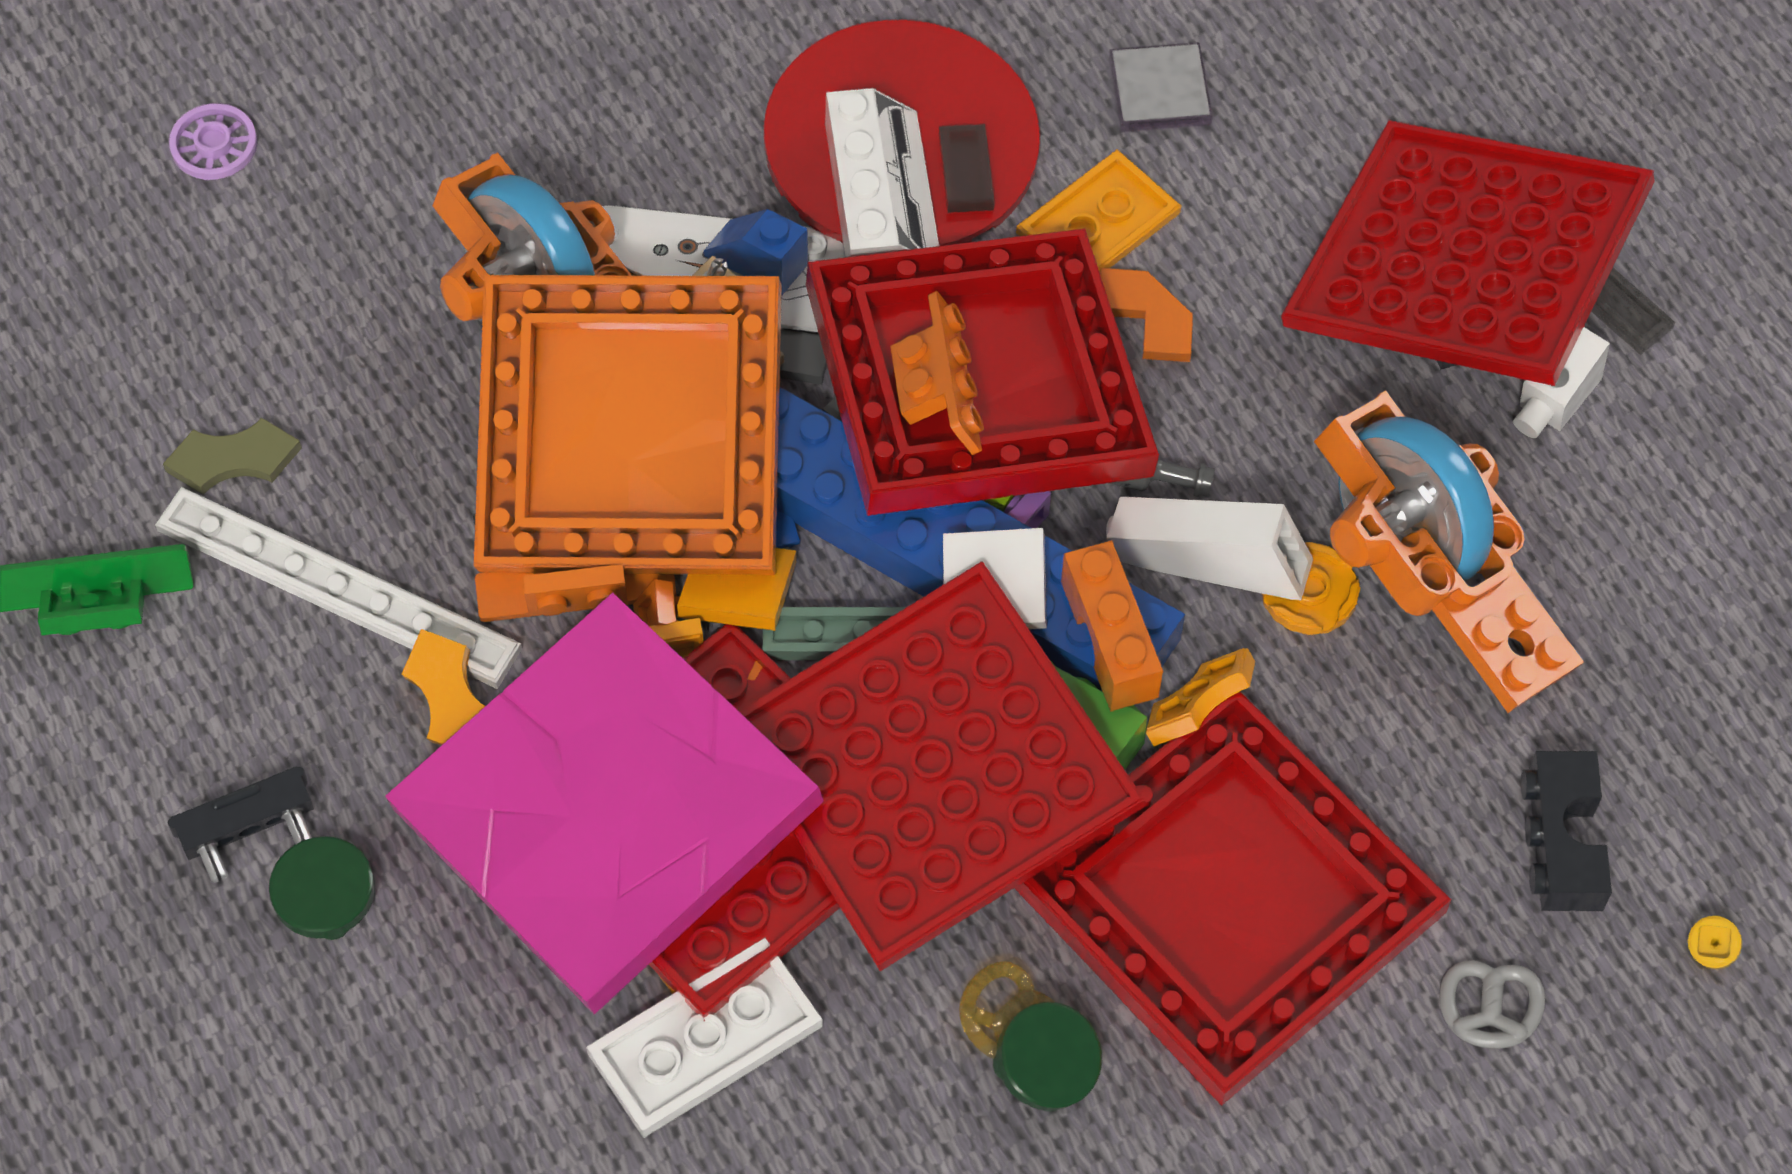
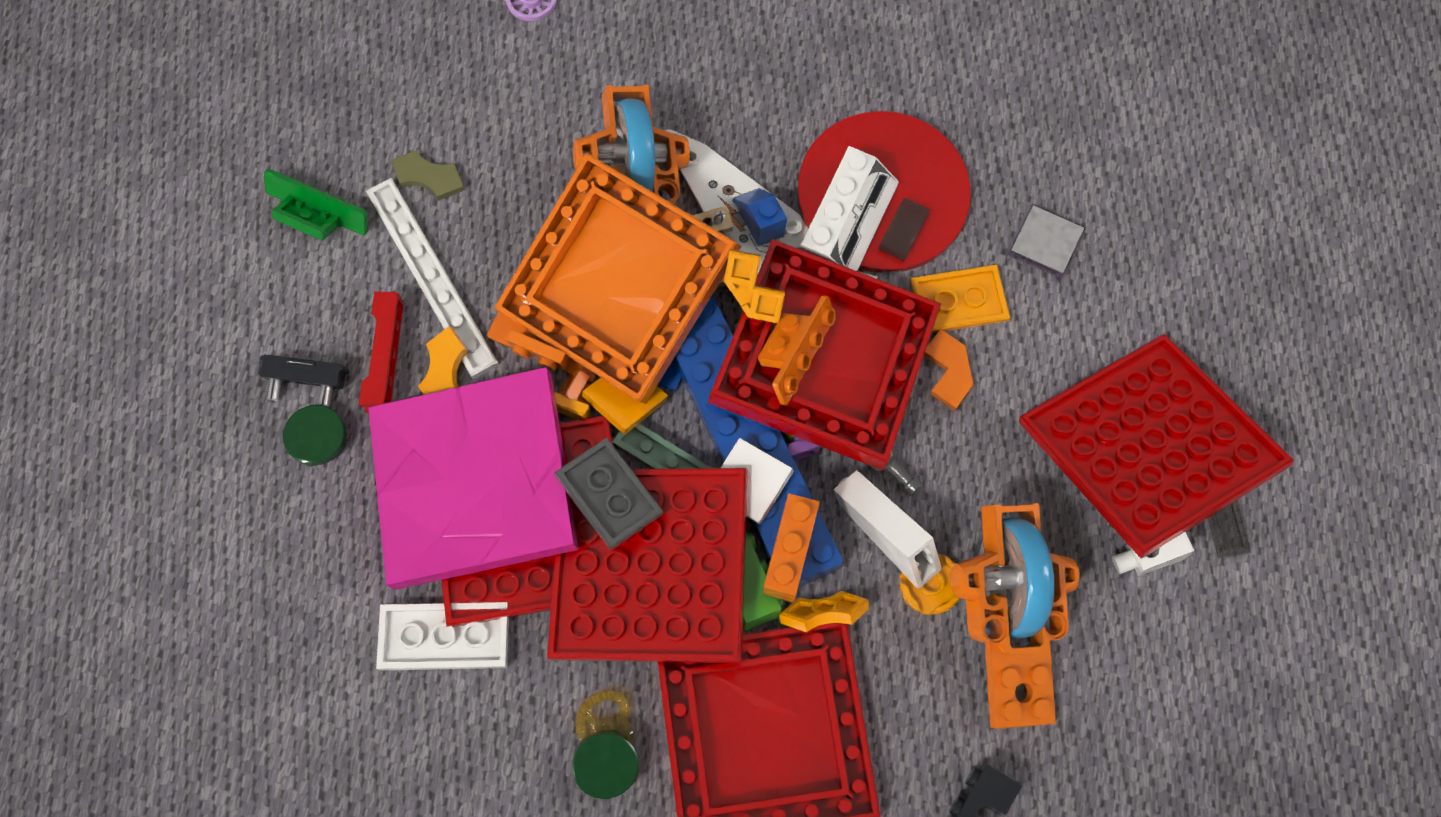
camera: 35 degrees right, 10 degrees up
(321, 677) = (378, 386): none -> red piece
(814, 324) = (754, 300): none -> light orange tile
(819, 698) = (608, 493): none -> dark grey tile

